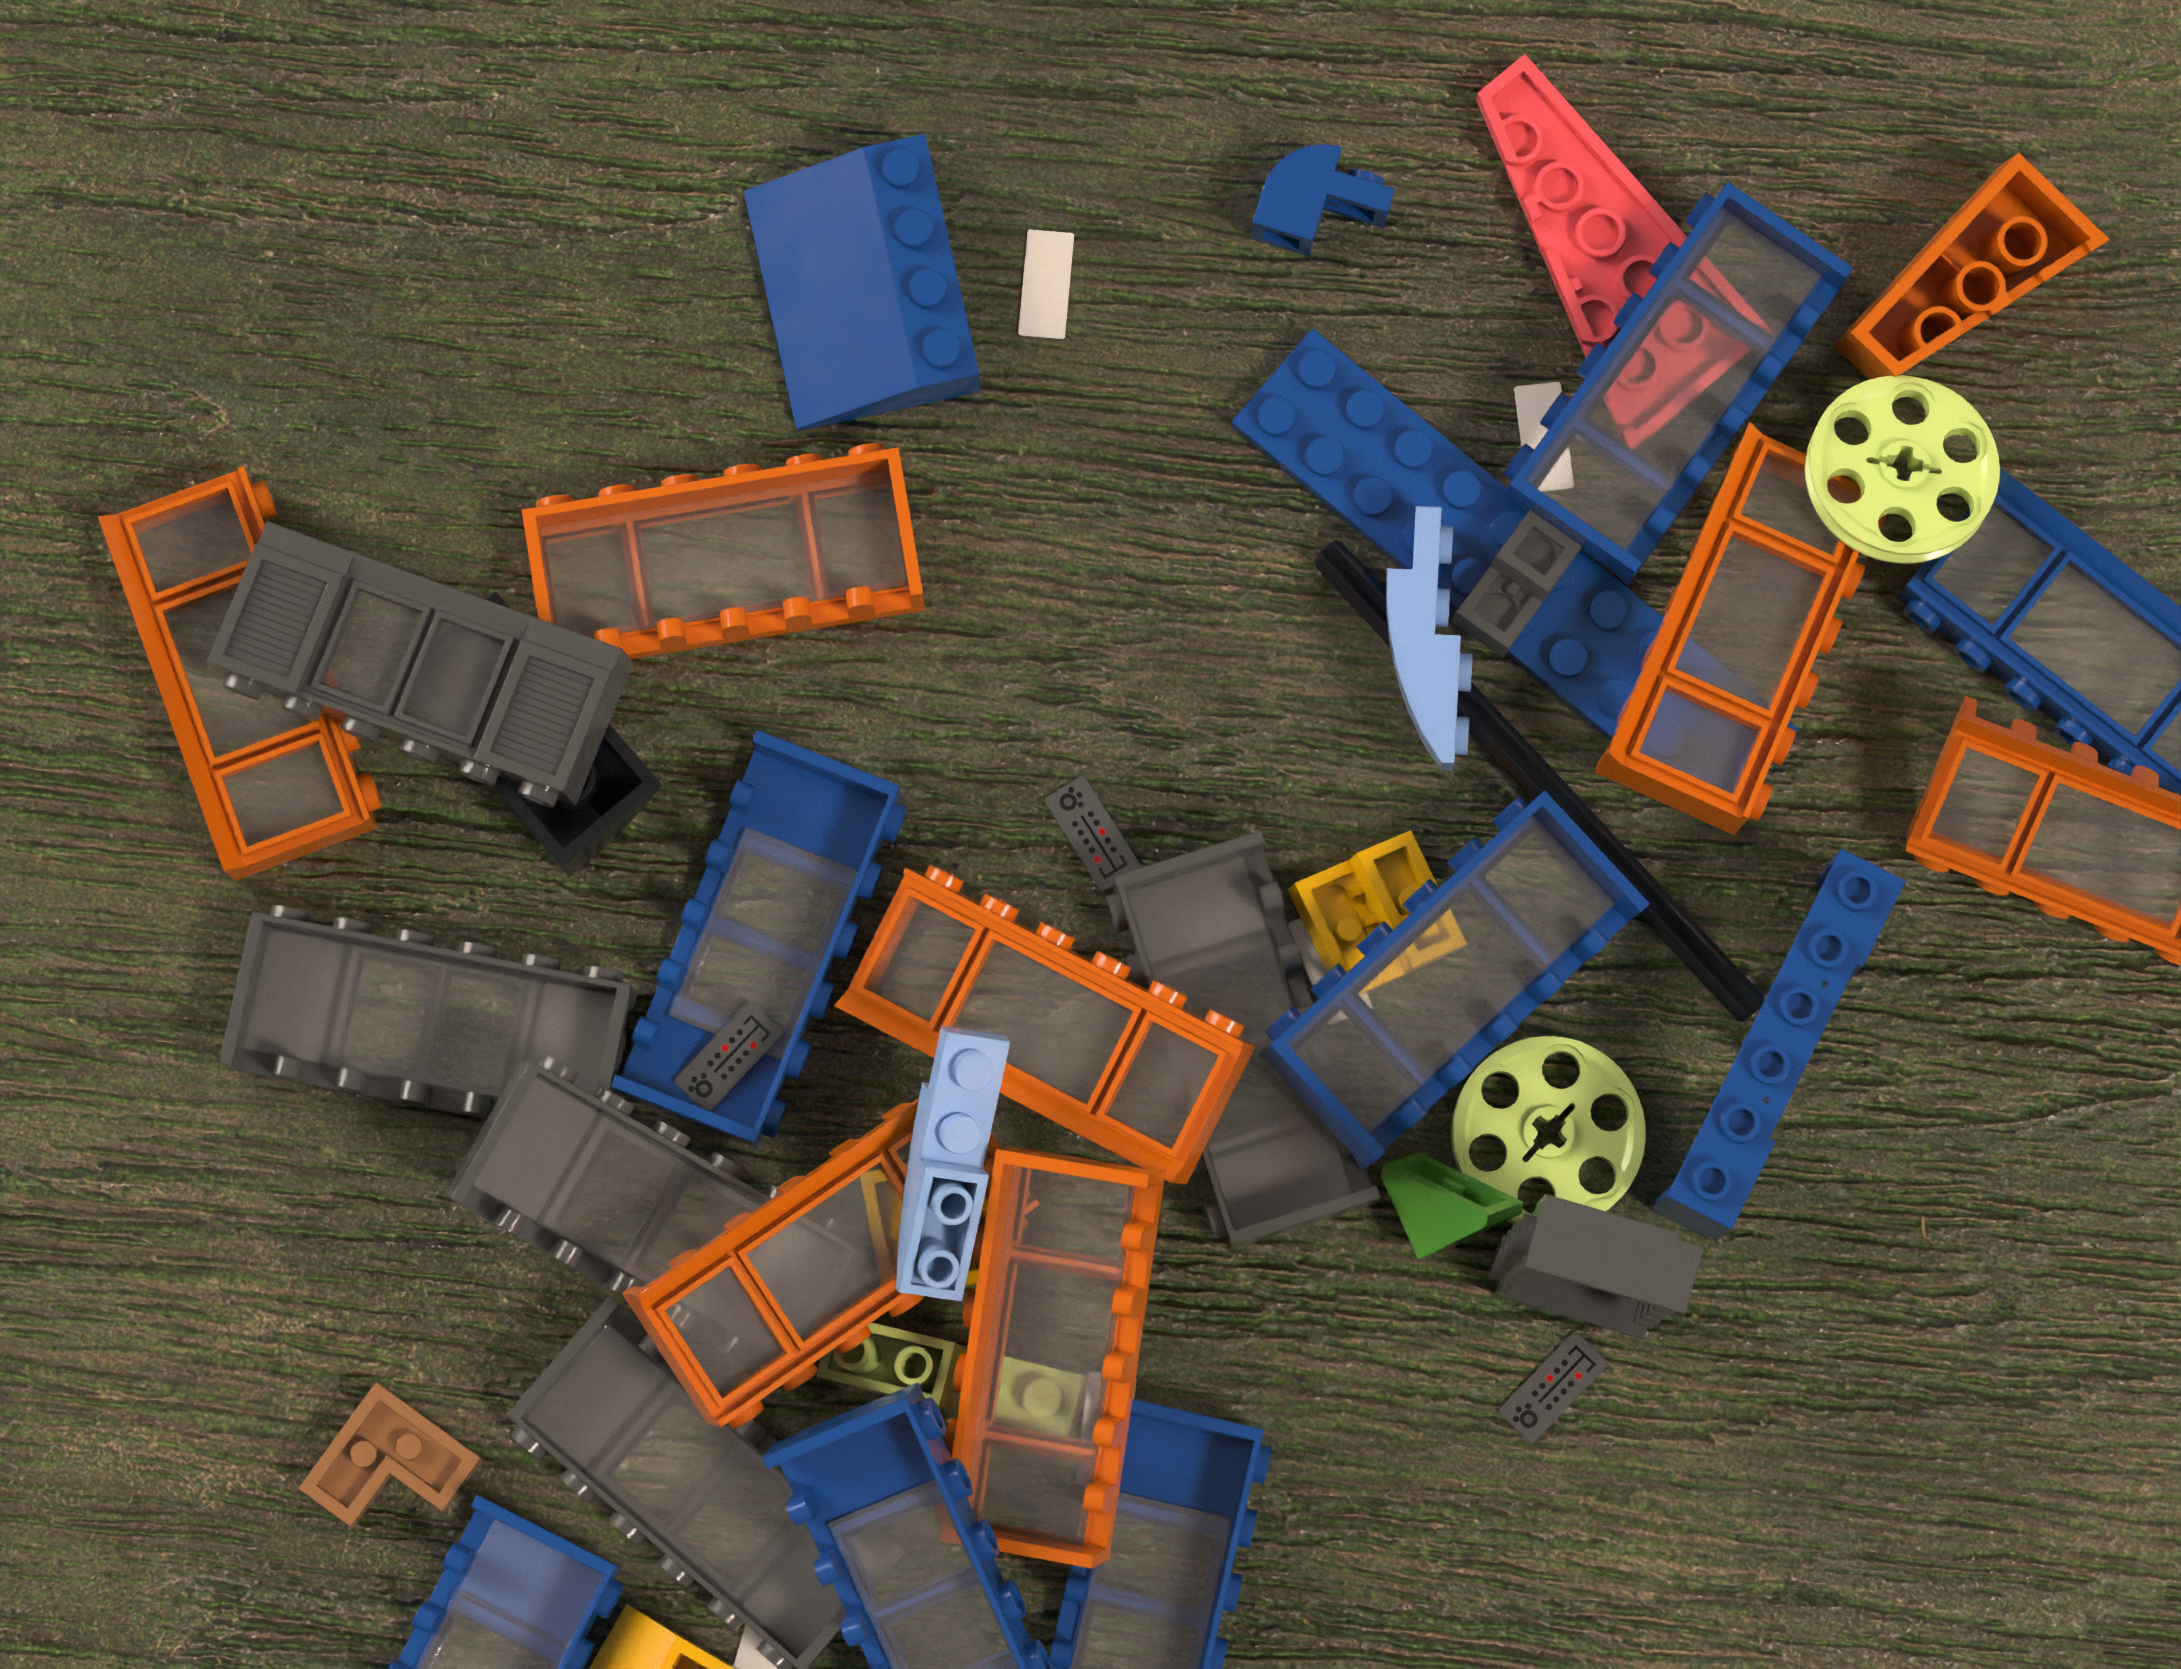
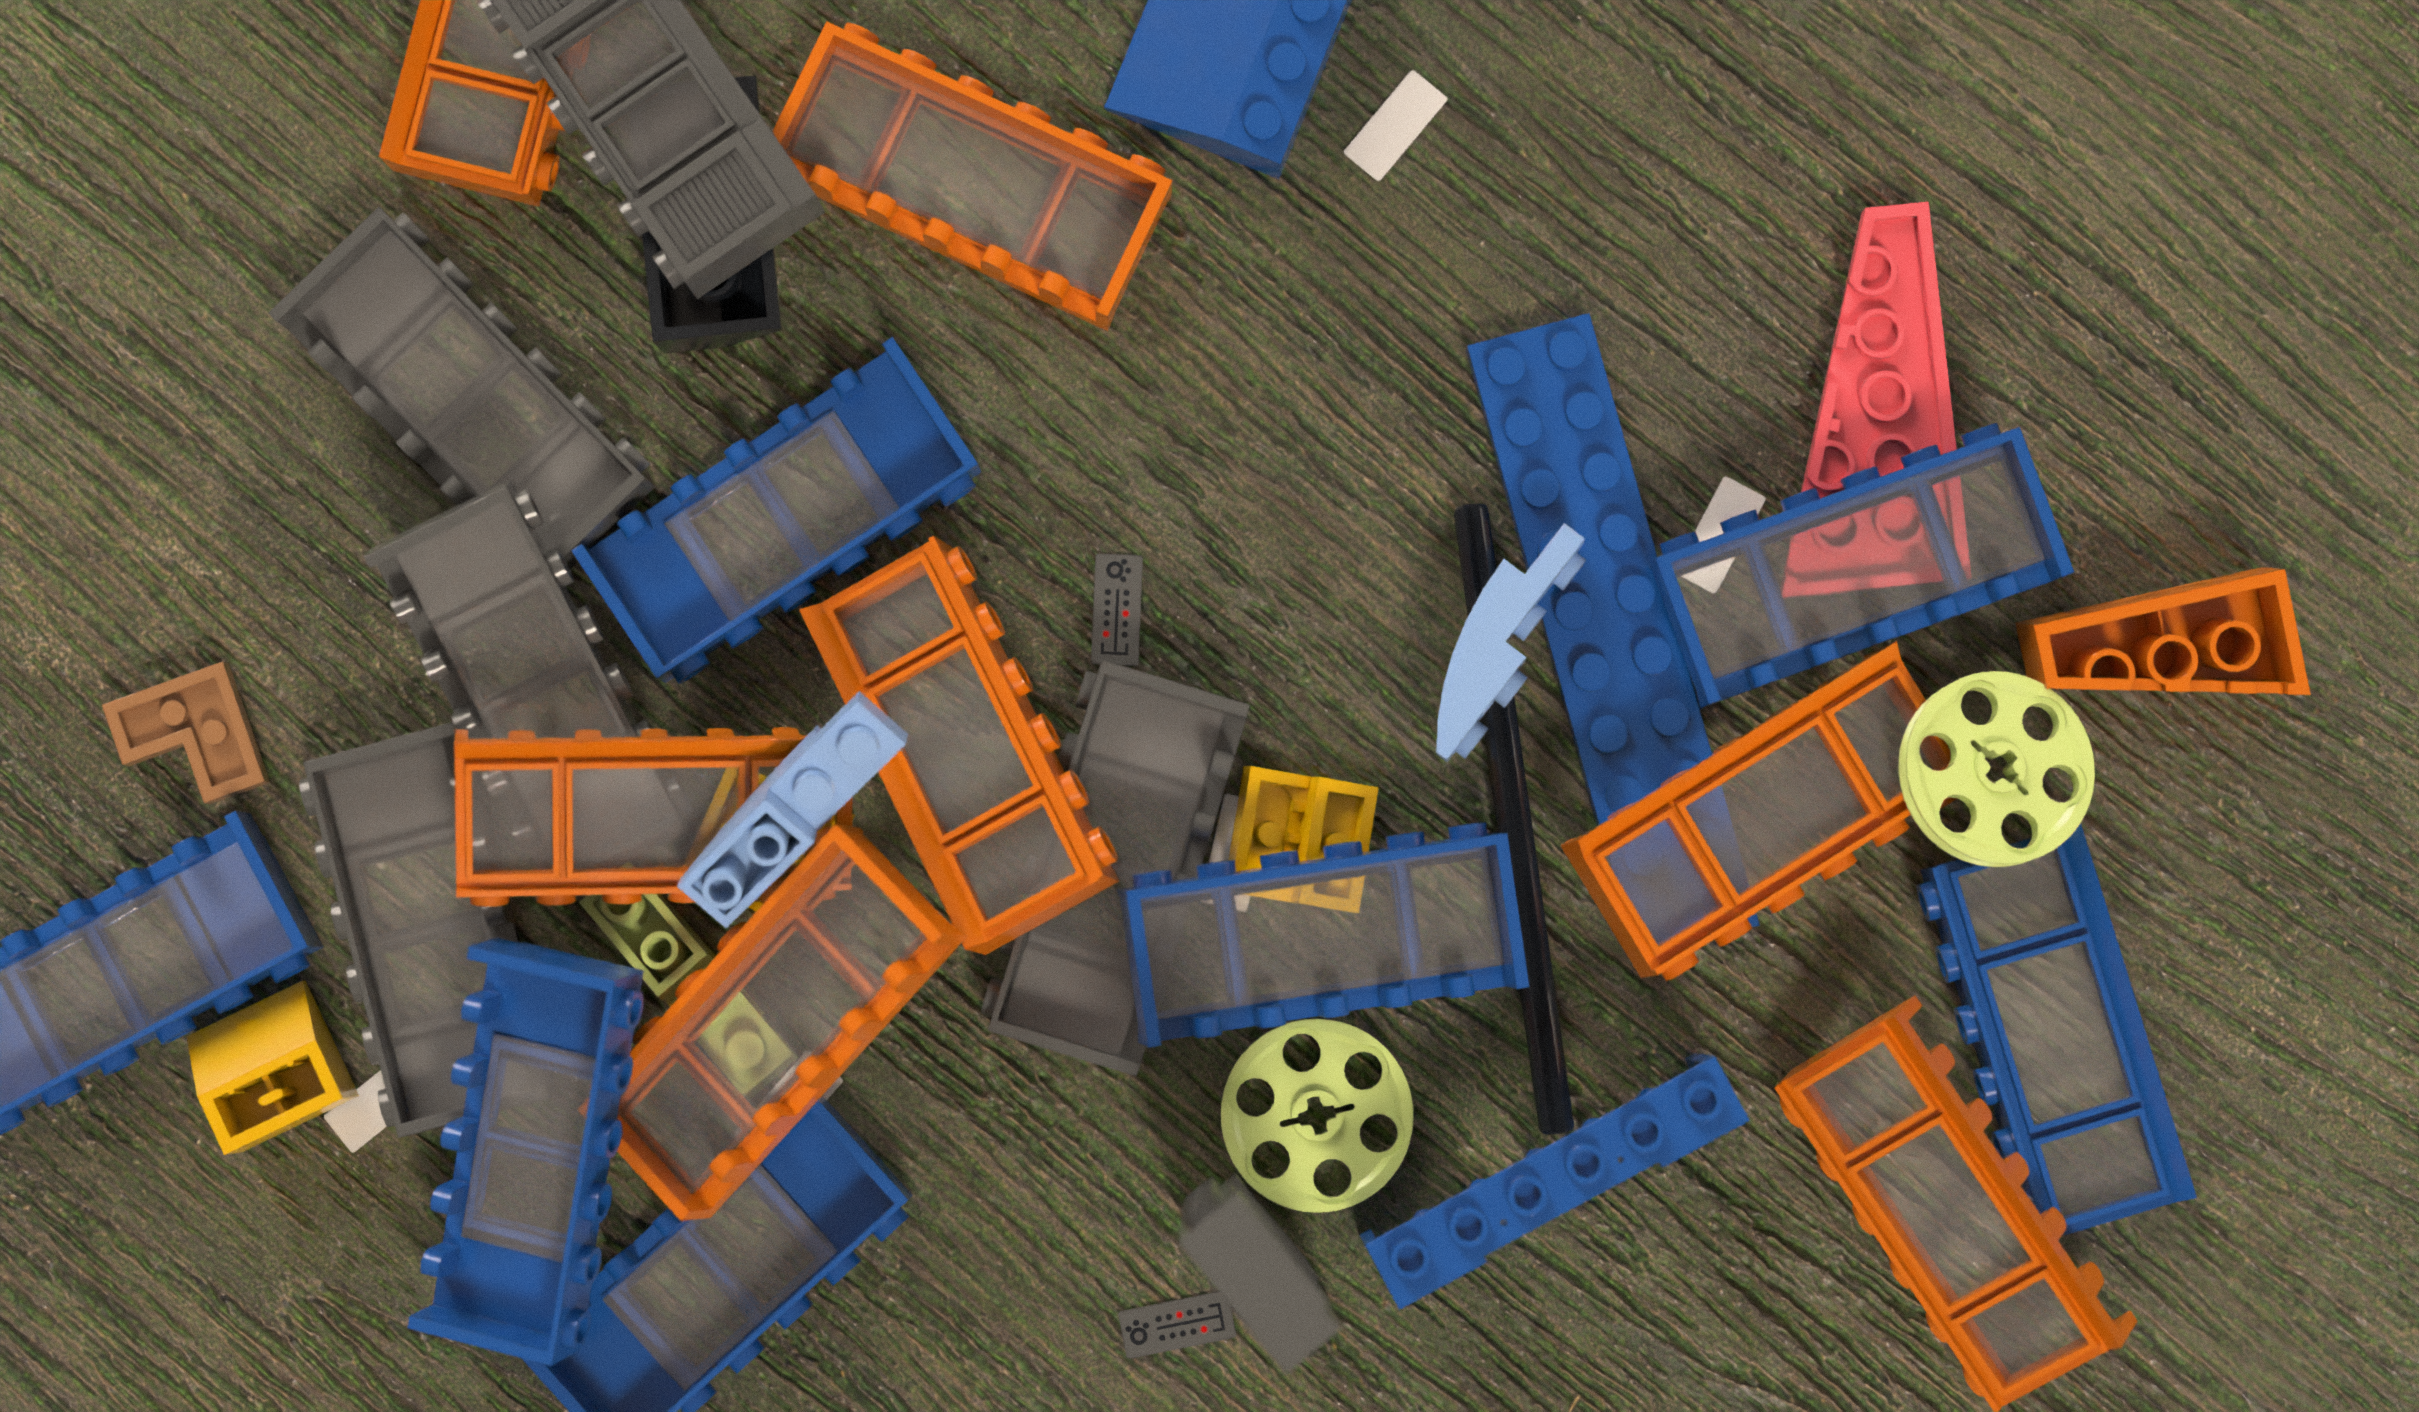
camera: 35 degrees right, 5 degrees up
(728, 1056) = (689, 591): dark grey sticker -> none
(1308, 185) = (1666, 190): blue brick -> none
(1443, 1204) = (1187, 1115): bright green slope -> none
(1516, 583) = (1607, 643): dark grey slope -> none

